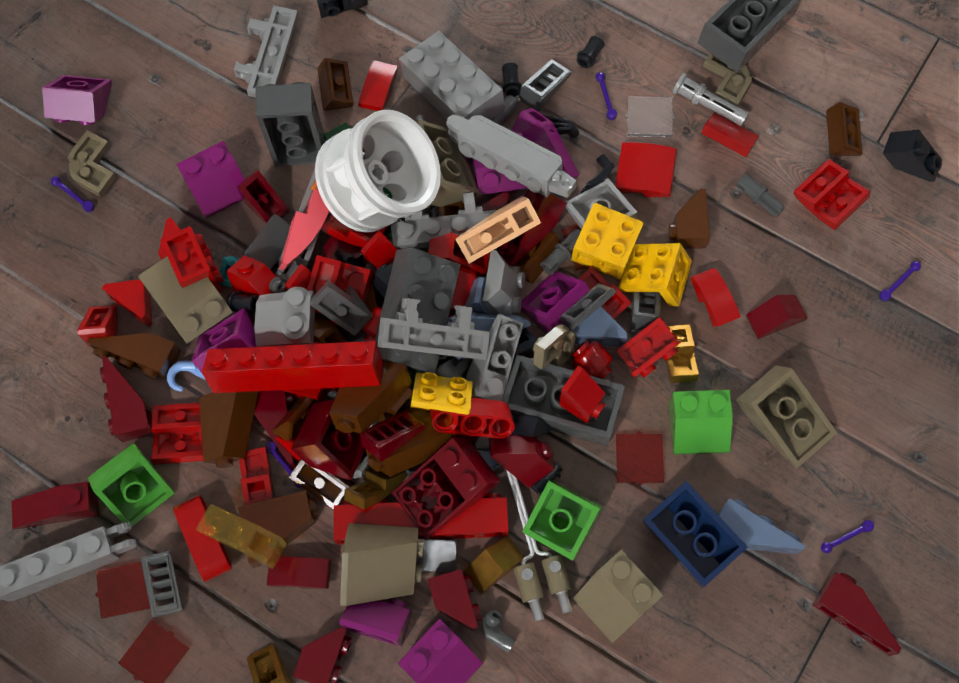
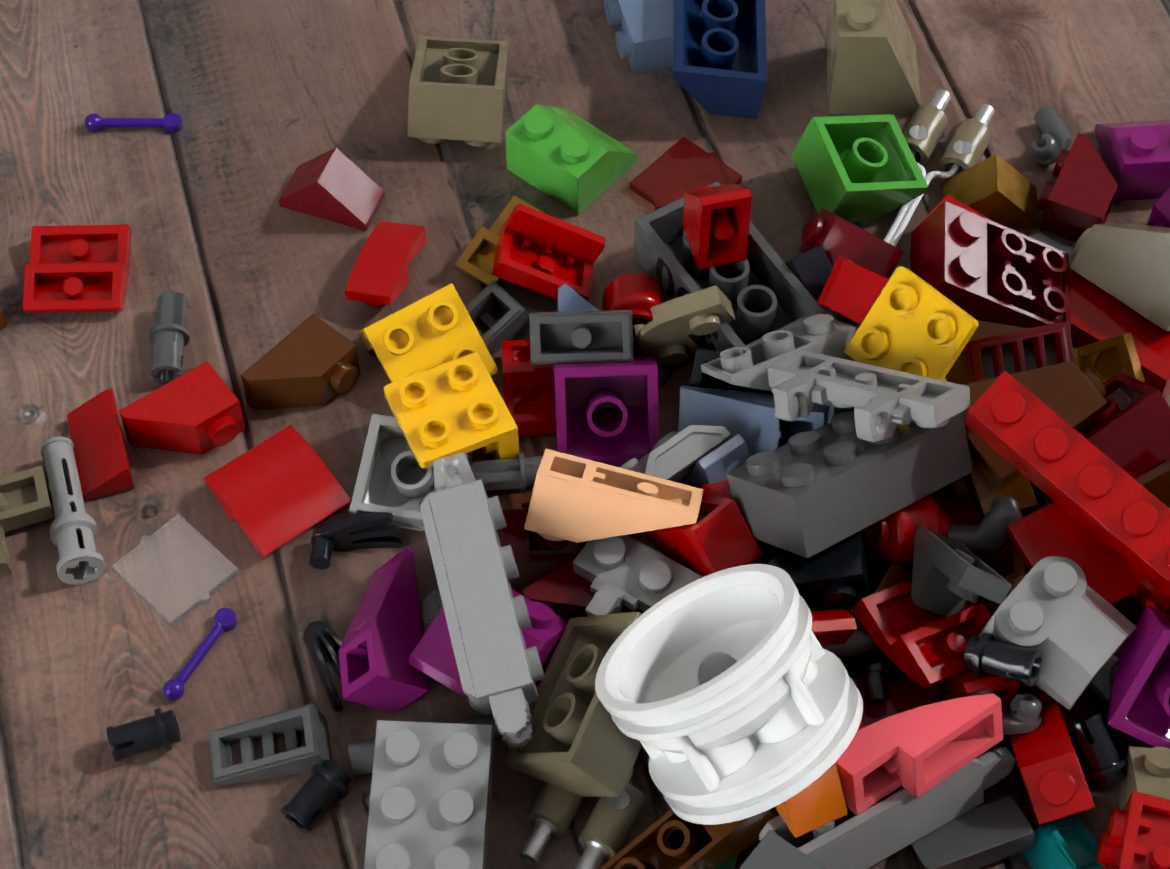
camera: 140 degrees left, 15 degrees down
(288, 281) = (1001, 659): none -> black pin
(711, 168) = (185, 414): none -> red slope

